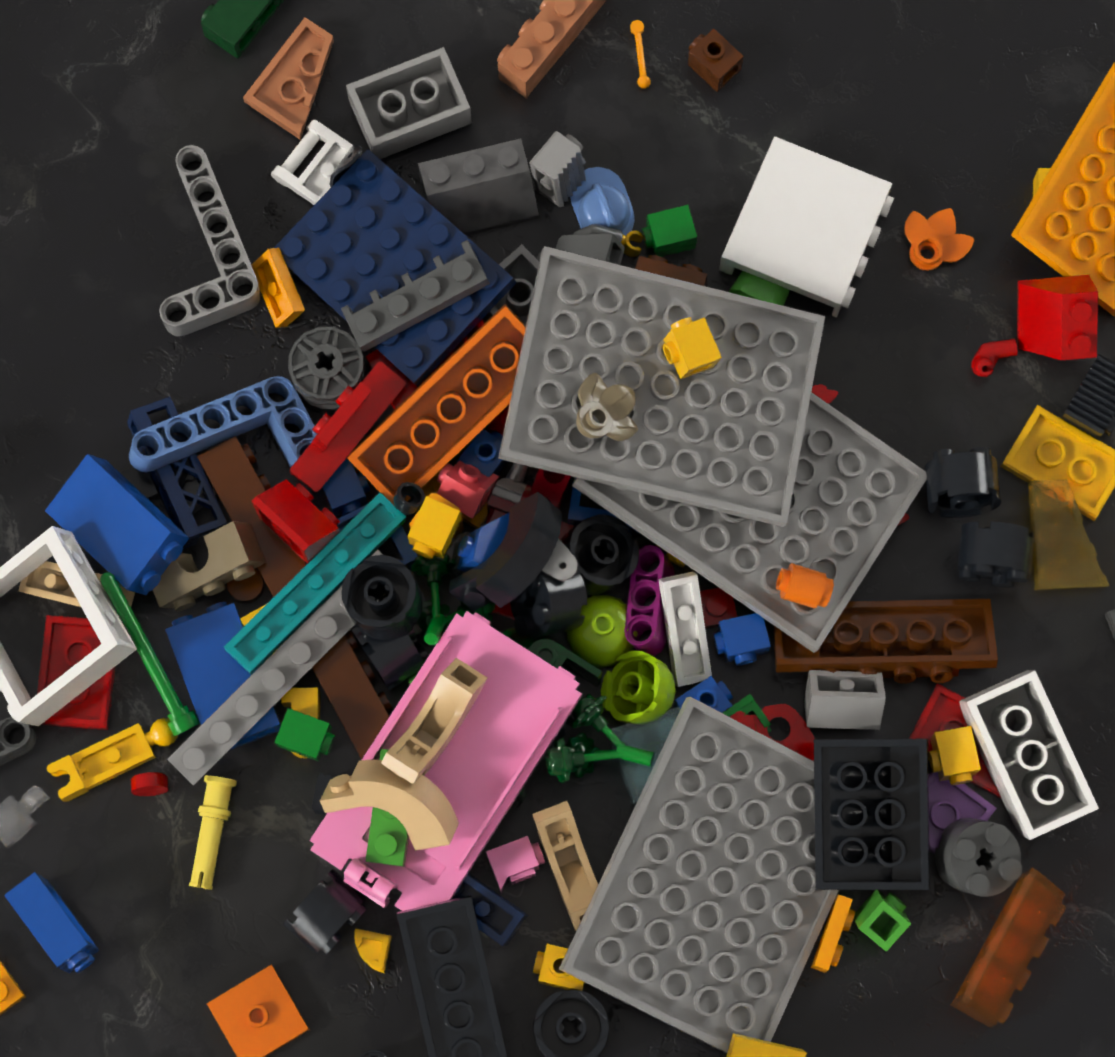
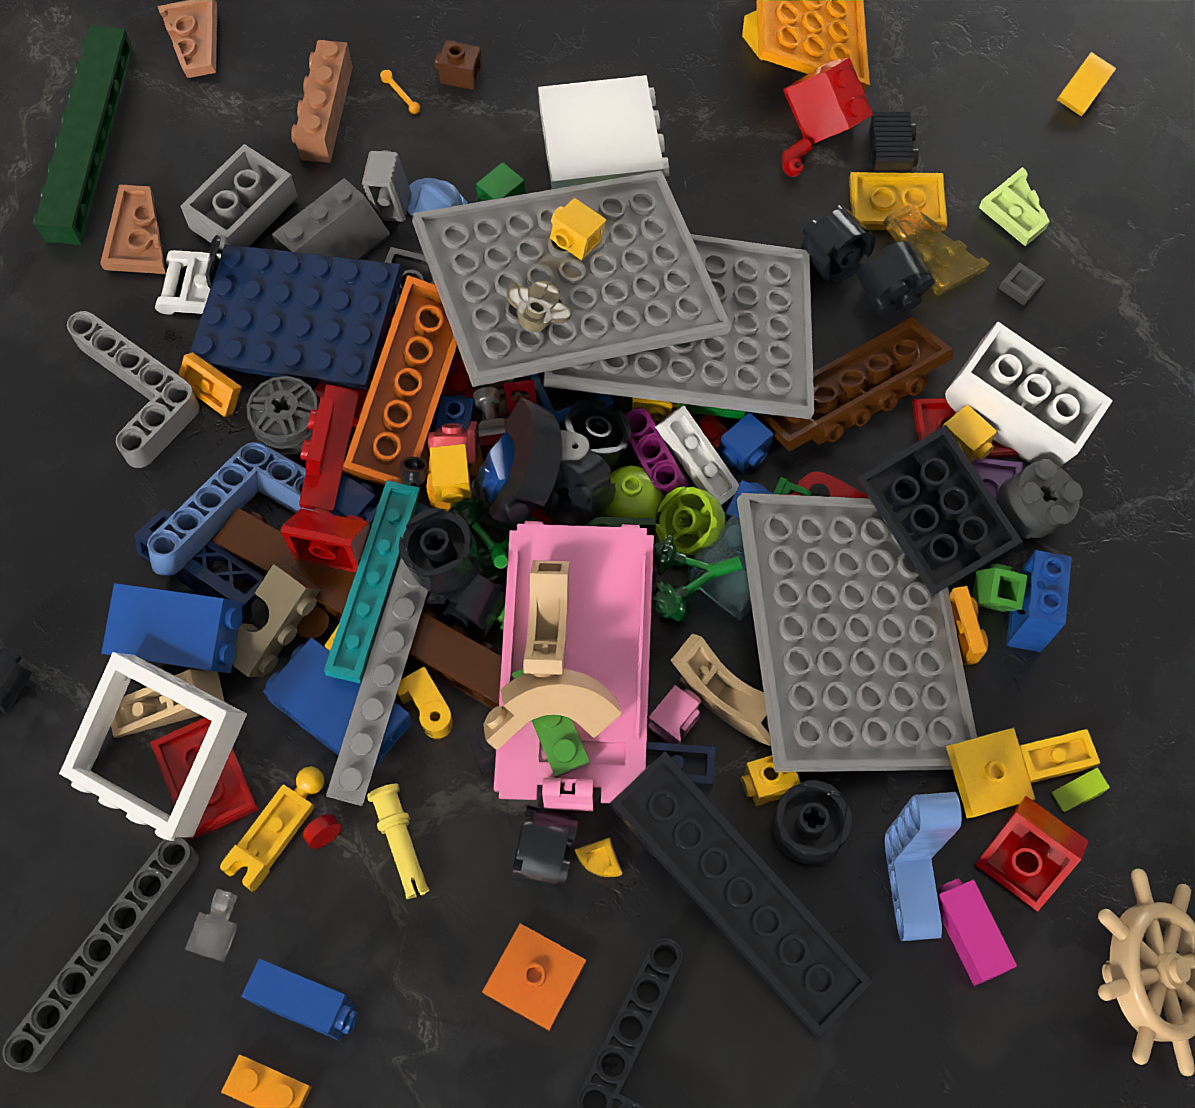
camera: 30 degrees left, 10 degrees down
(180, 716) = (316, 756): green piece -> none
(305, 735) = (437, 707): green brick -> none
(416, 299) = (330, 320): dark grey hinge -> none
(804, 586) = (775, 365): orange brick -> none
(844, 700) = (856, 443): light grey brick -> none
(907, 954) = (1043, 602): none -> blue window
(938, 236) = (700, 104): orange plate -> none
(1009, 948) = (1108, 558): clear orange slope -> none

